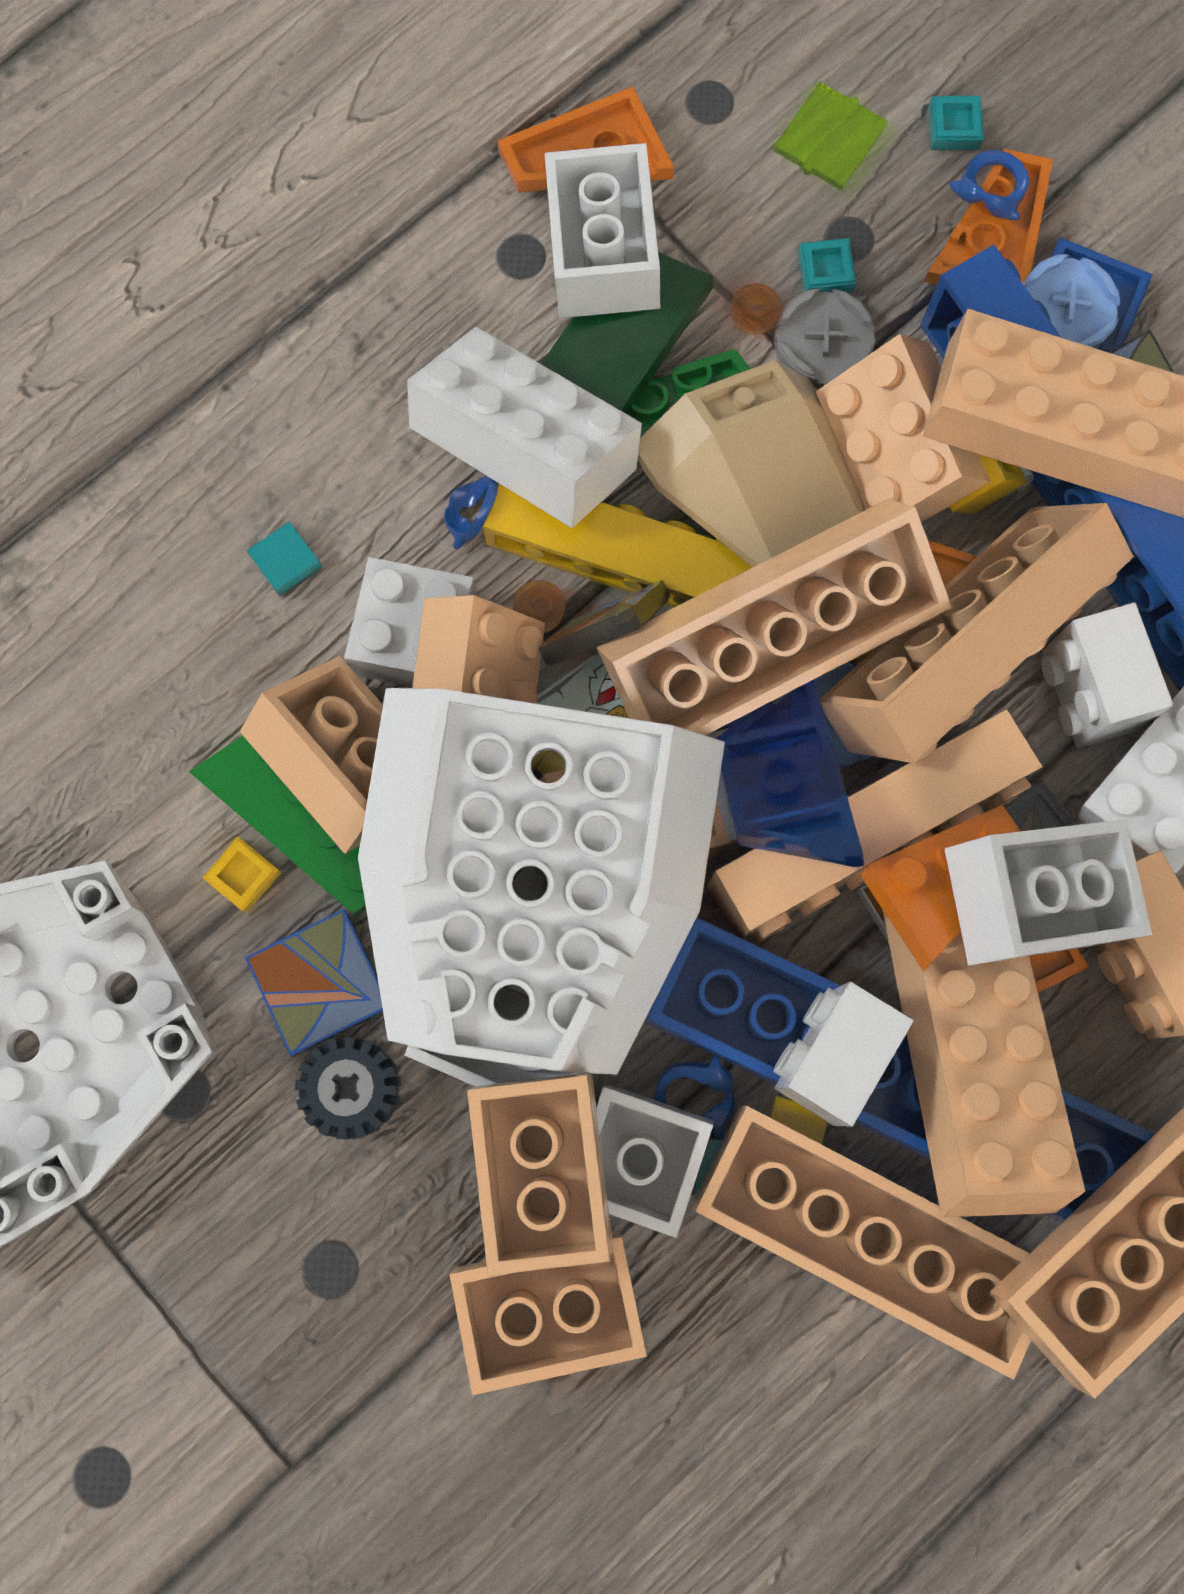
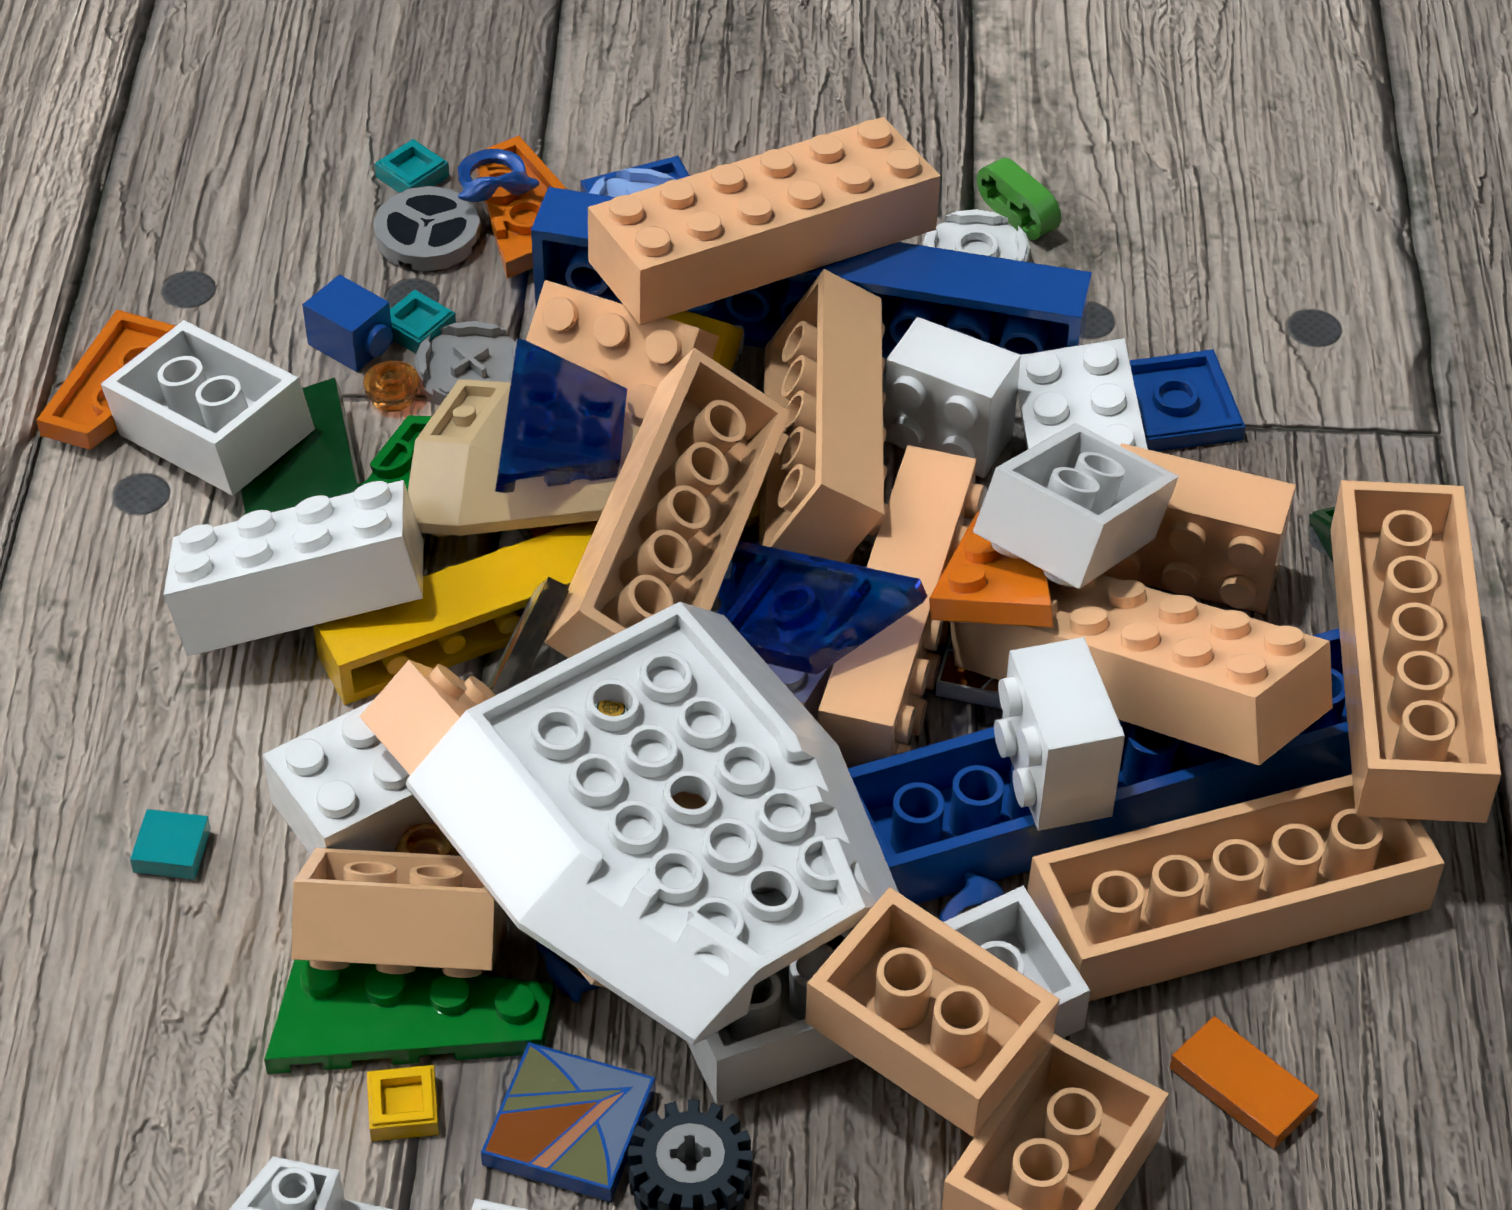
camera: 45 degrees left, 30 degrees down
(468, 496) = (293, 672): blue piece -> none
(736, 1364) = (1244, 1082): none -> orange tile
(773, 231) = (348, 323): none -> blue brick
(794, 464) = (559, 421): none -> clear blue wing
(830, 136) = (318, 243): clear neon green piece -> none
(911, 187) = (427, 228): none -> light grey tile

